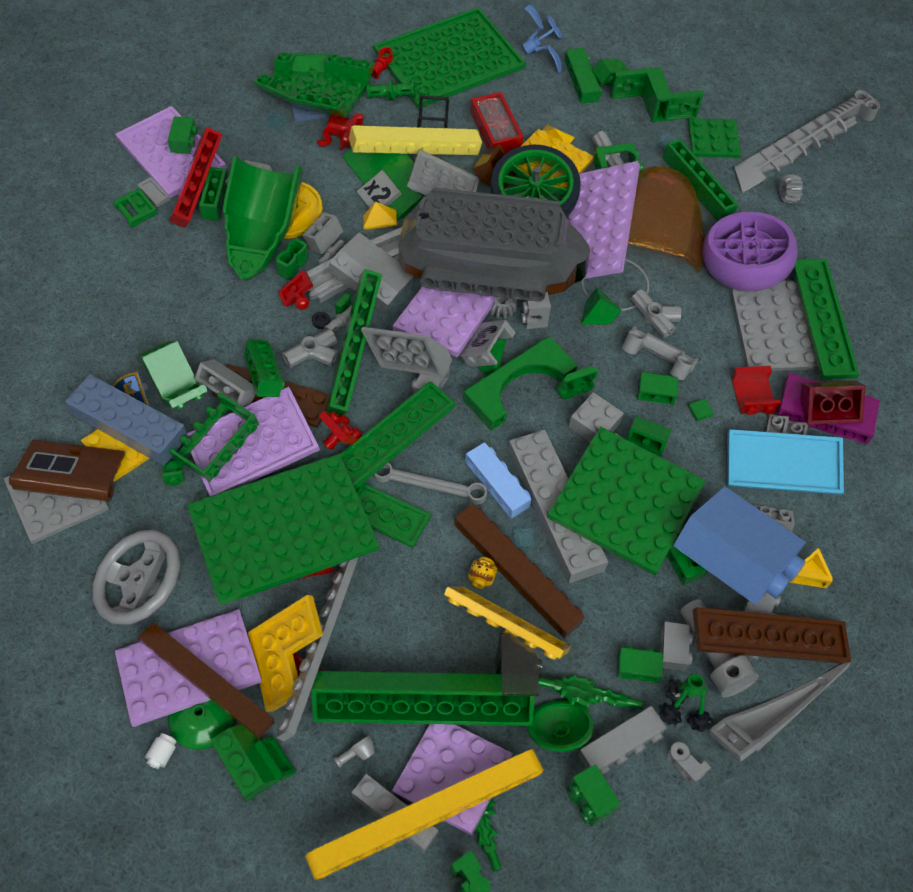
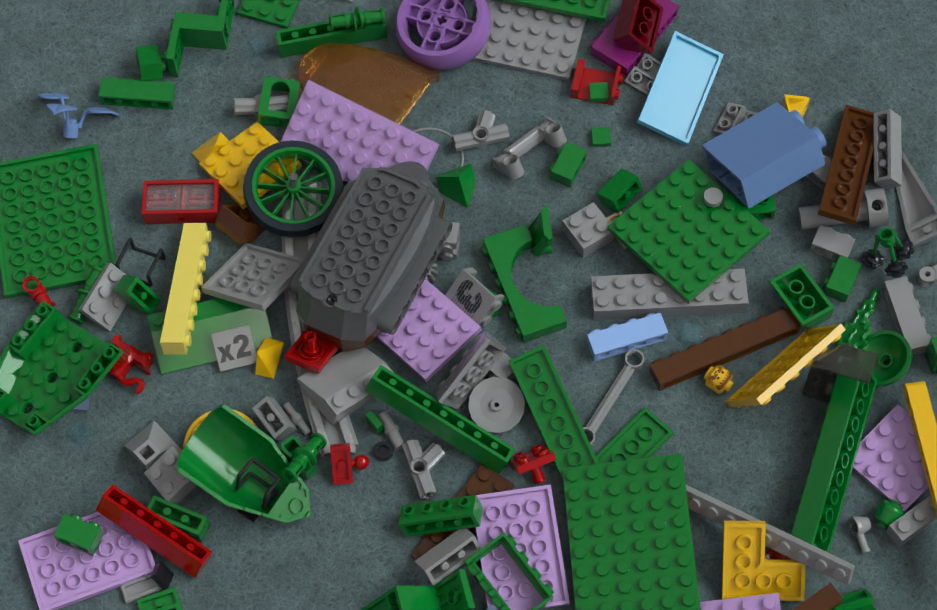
camera: 65 degrees left, 5 degrees up
(163, 197) = (162, 575): none -> black tile
(260, 226) = (271, 488): none -> black piece
(278, 161) = (149, 445): none -> light grey slope
(283, 250) = (303, 458): none -> green piece
(385, 235) = (311, 352): none -> red plate
(385, 773) = (888, 512): none -> green head
(389, 389) = (496, 391): none -> light grey piece
(393, 102) = (102, 302): none -> light grey plate
(400, 112) = (137, 294): none -> green brick
(598, 625) = (802, 296): none -> green slope
(669, 507) = (713, 197): none -> light grey tile
(716, 183) = (357, 18): none -> green piece
(746, 394) = (599, 92): none -> green tile
(810, 673) = (887, 149): none -> light grey brick

